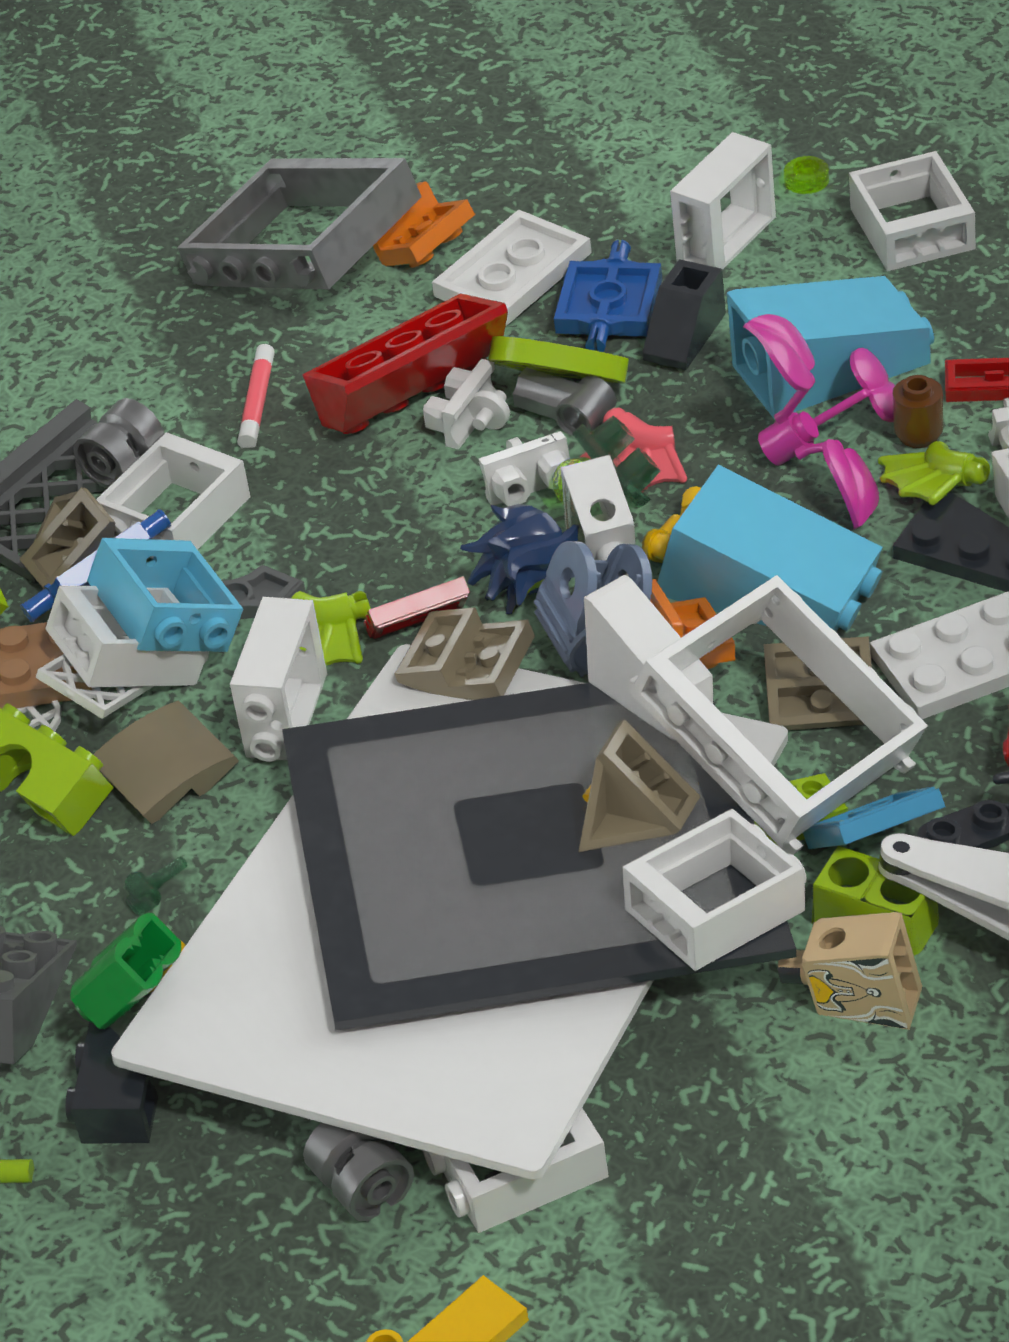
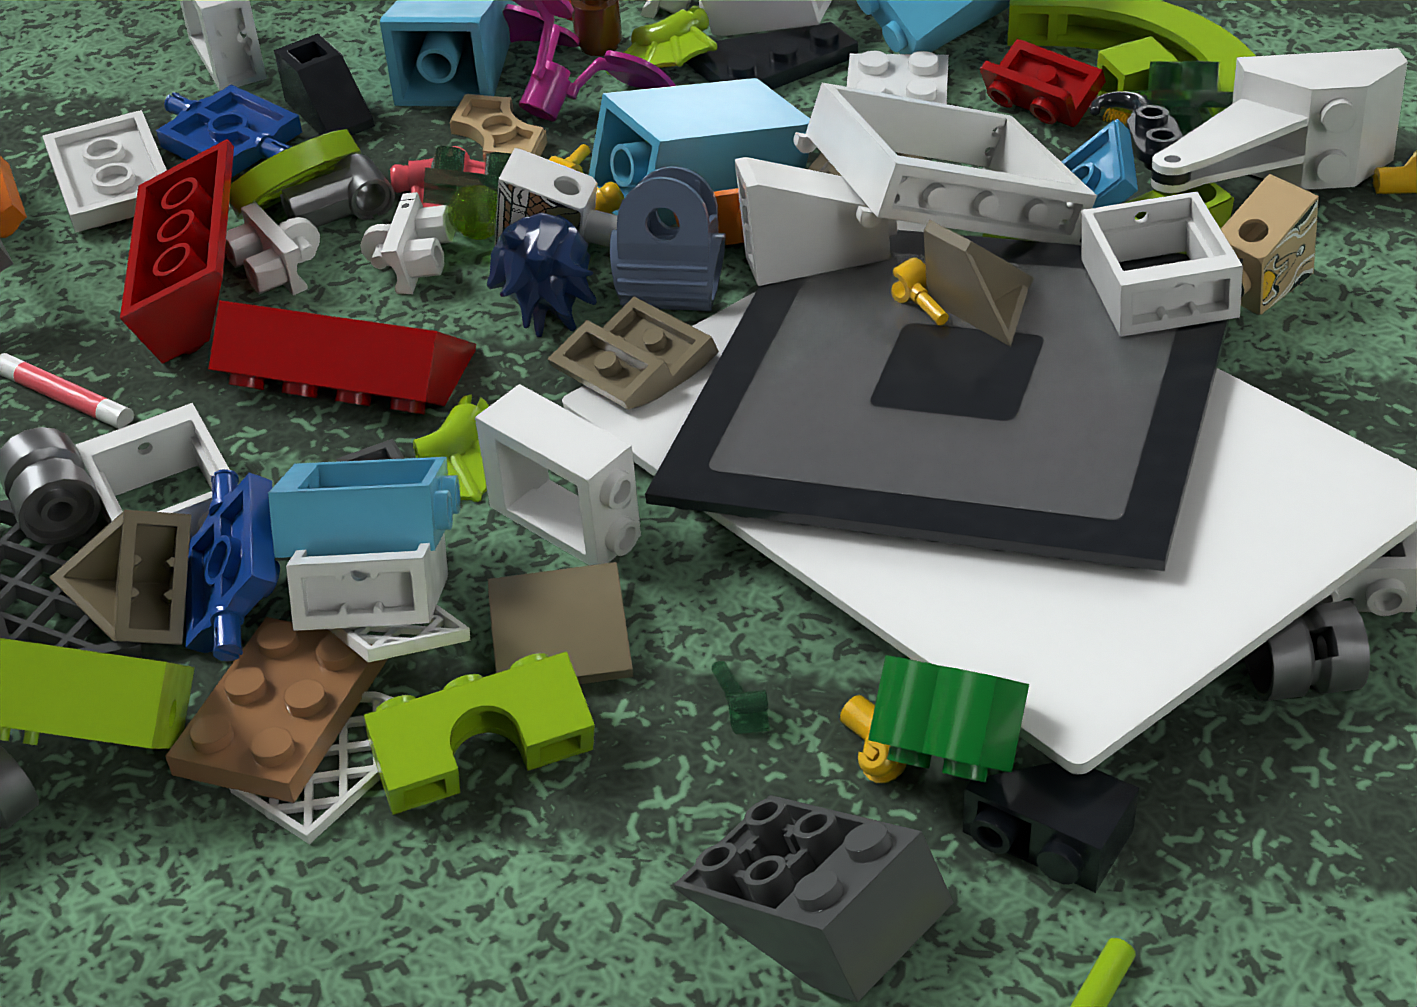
camera: 65 degrees left, 0 degrees up
(371, 505) = (337, 354): none -> red slope
(415, 607) = (530, 356): tile -> none
(730, 439) = (493, 125): none -> tan tile

